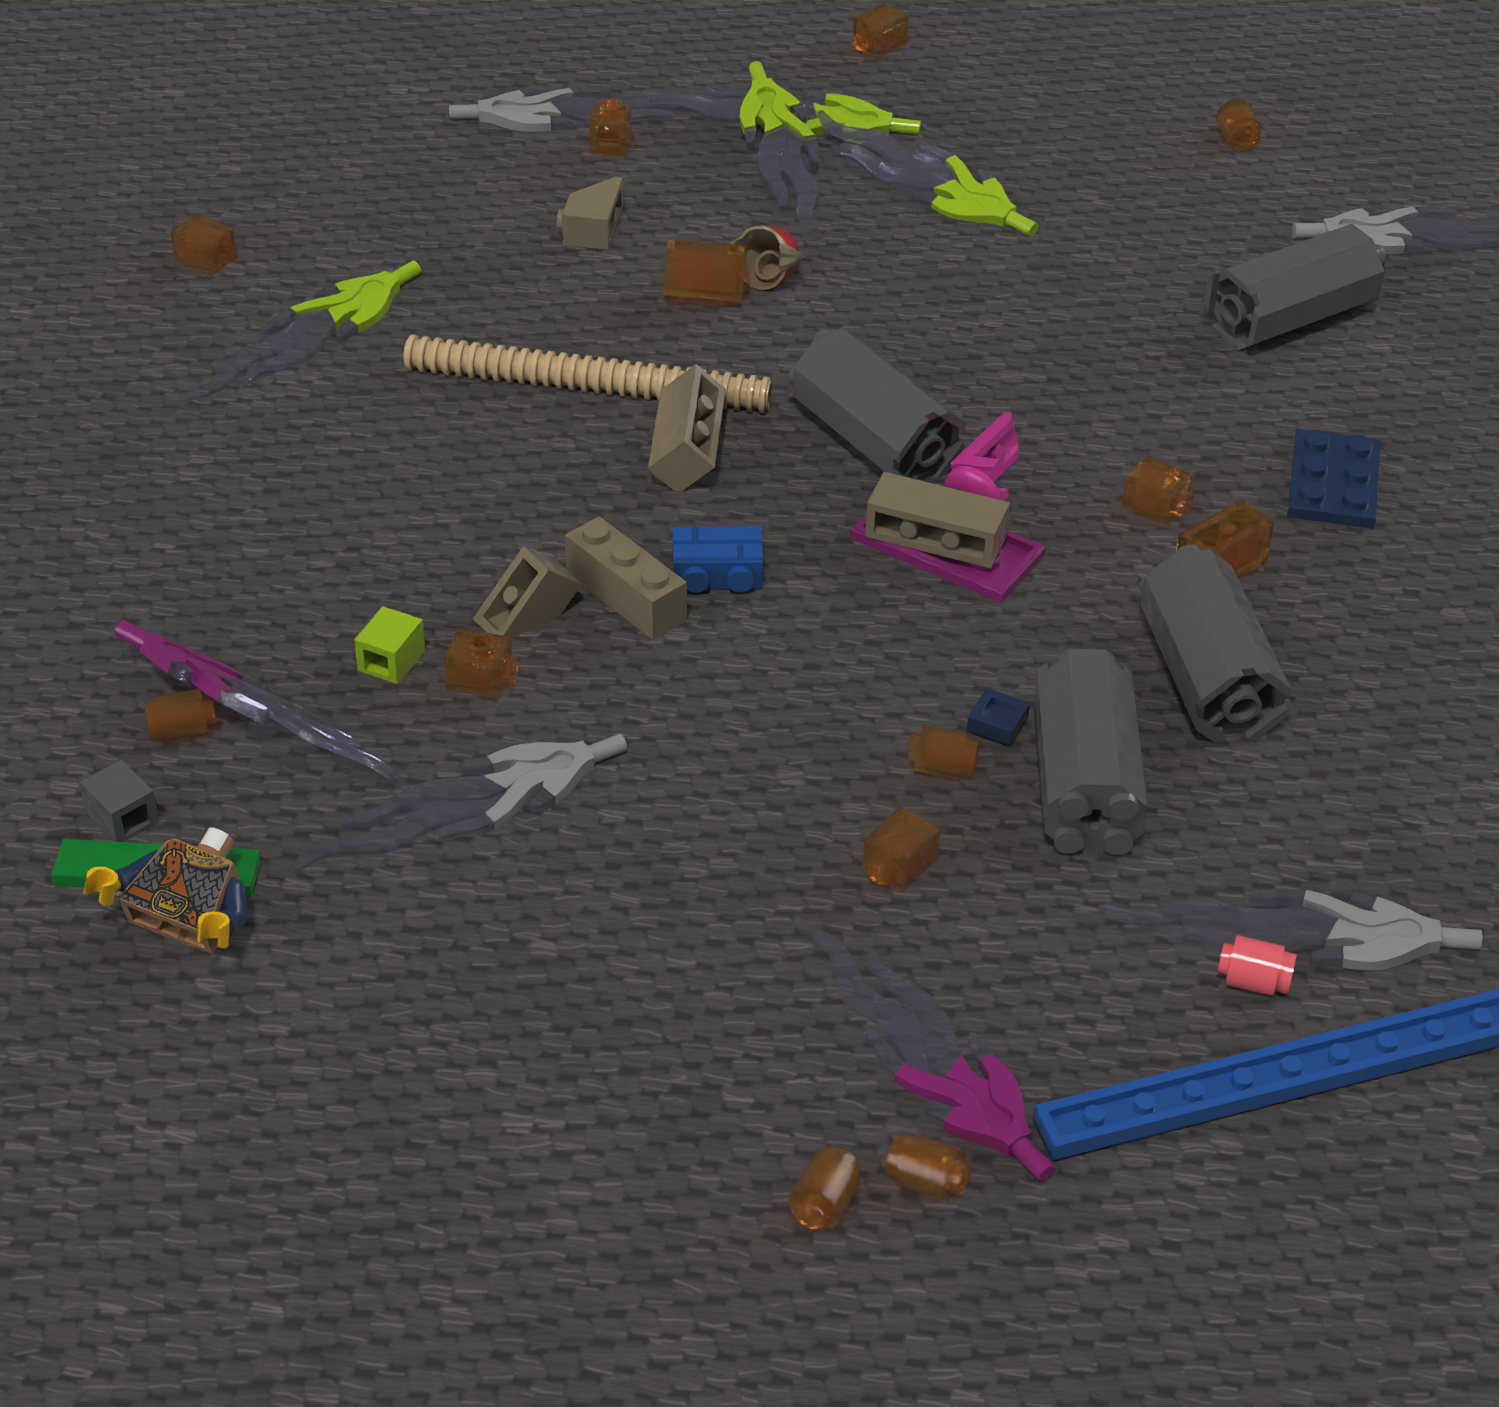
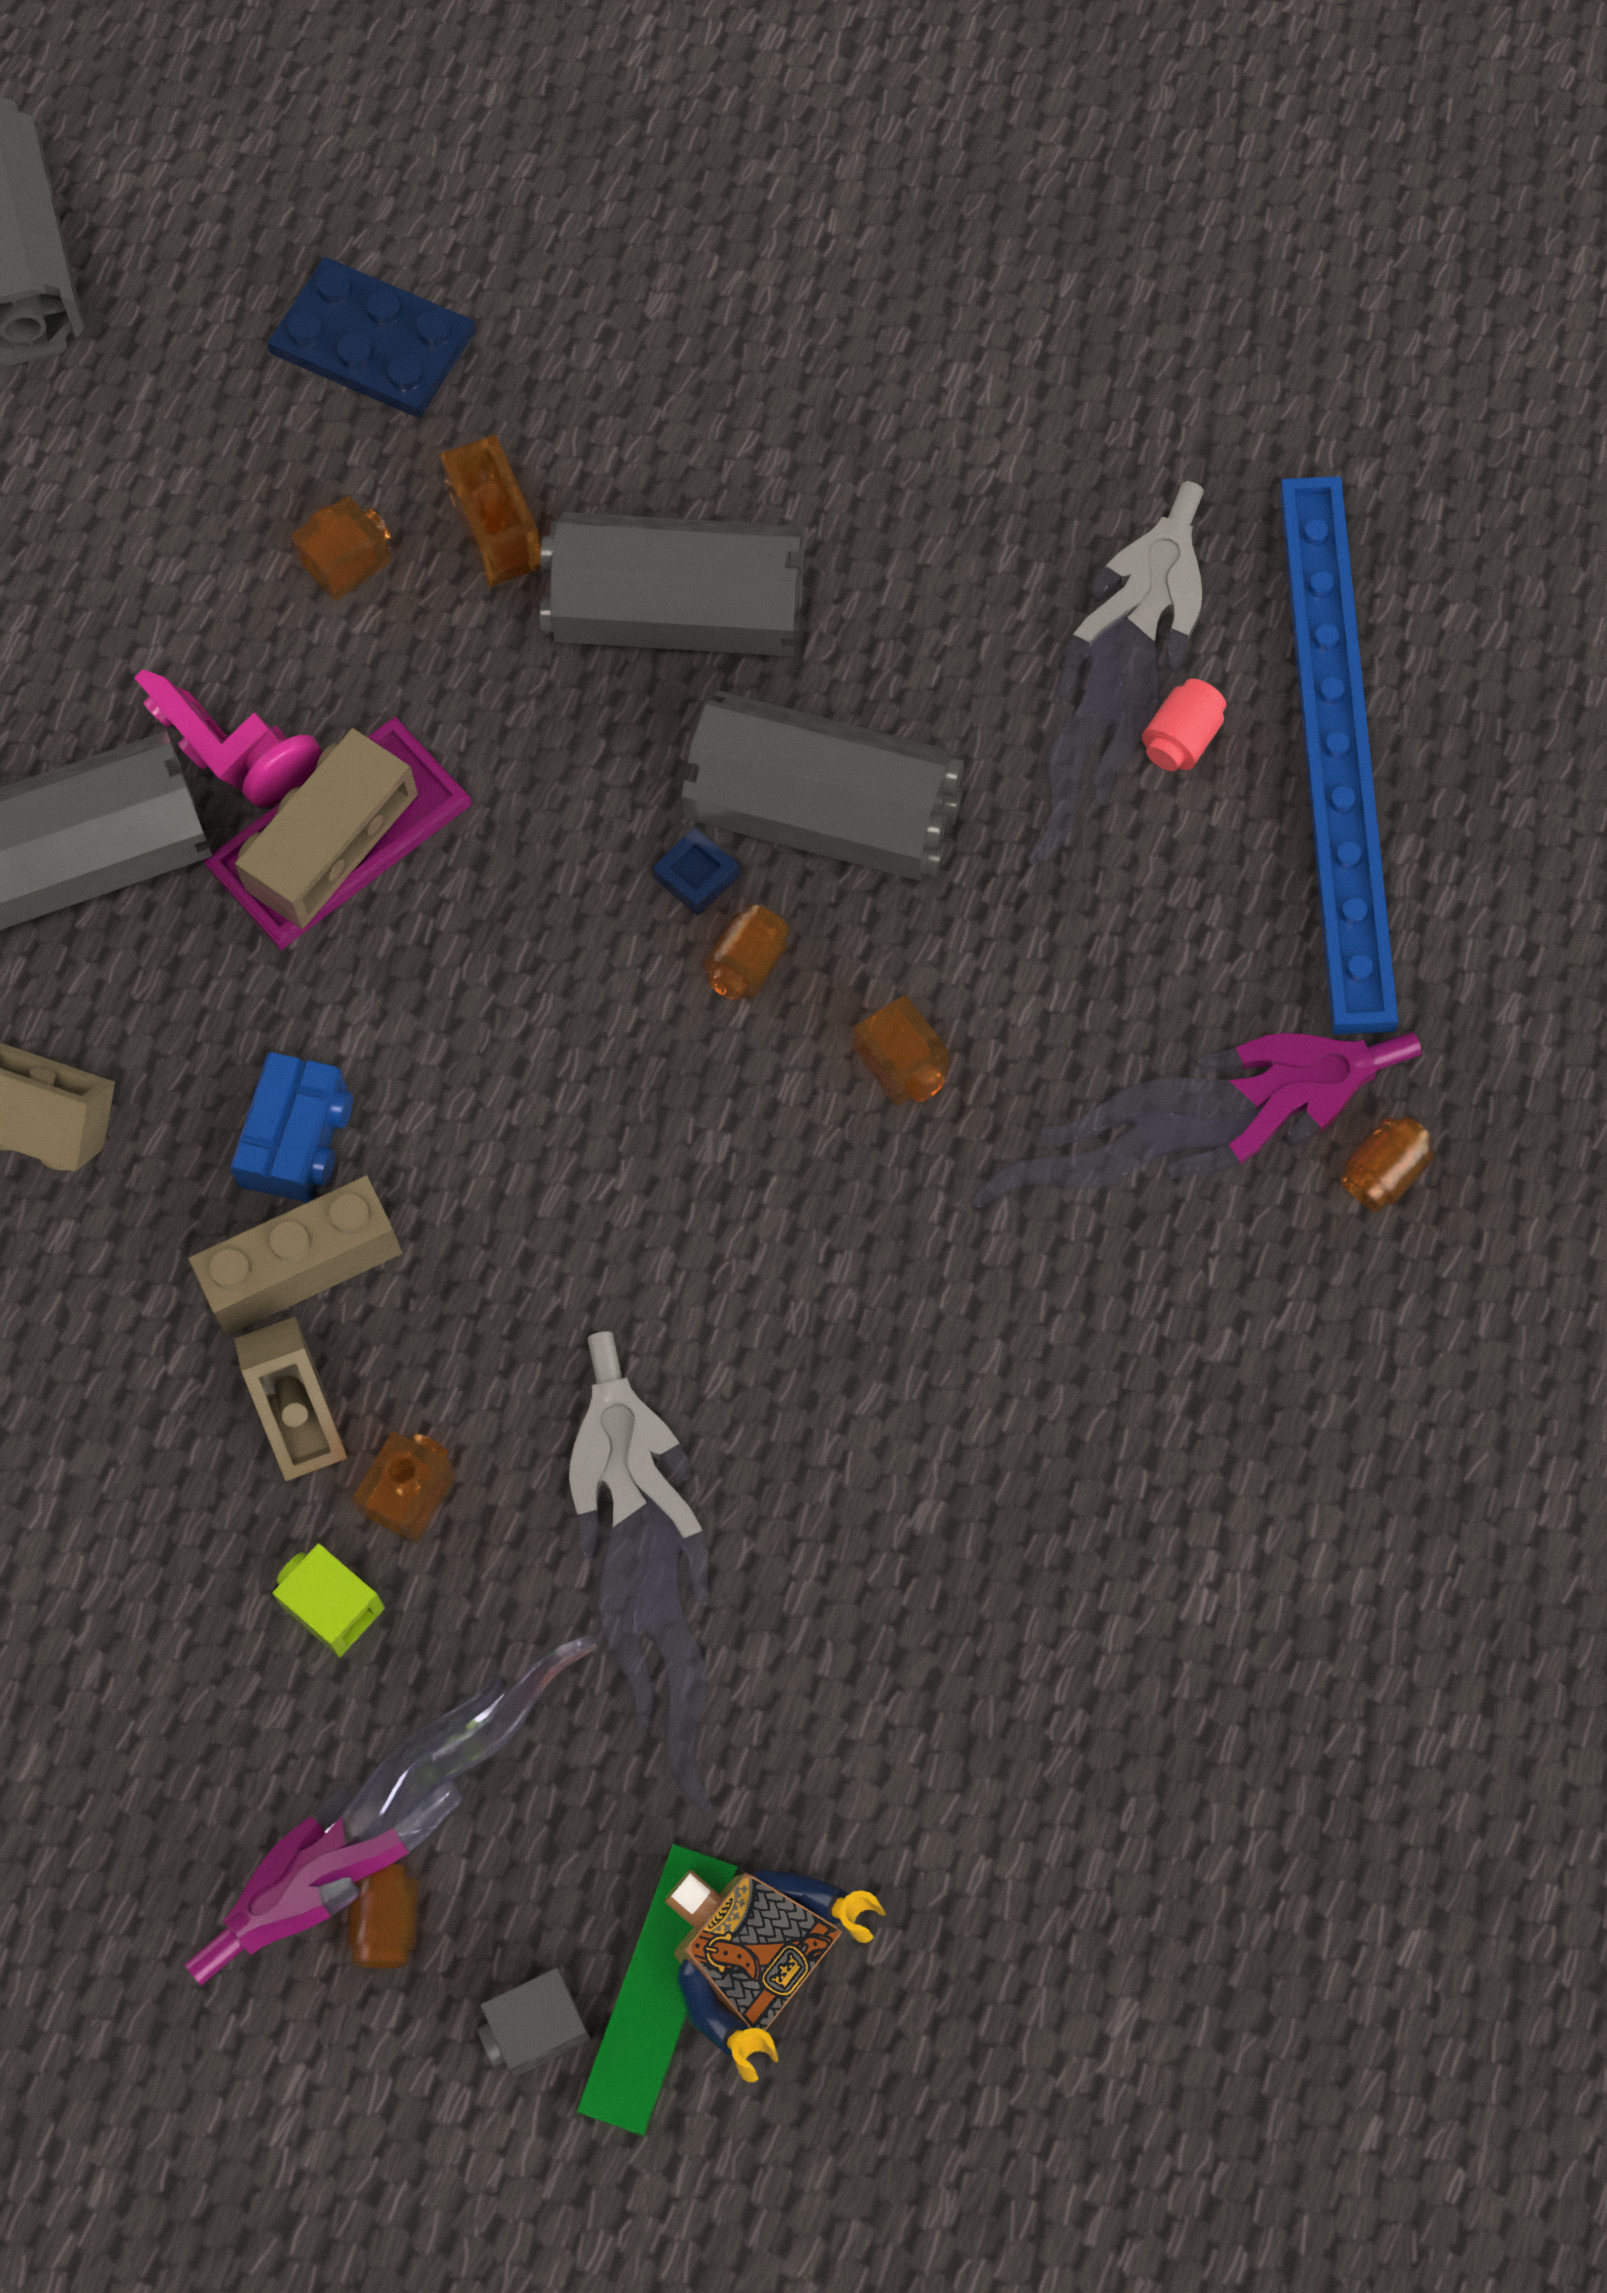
camera: 70 degrees left, 25 degrees up
(825, 1188) = (1395, 1281): clear orange brick -> none

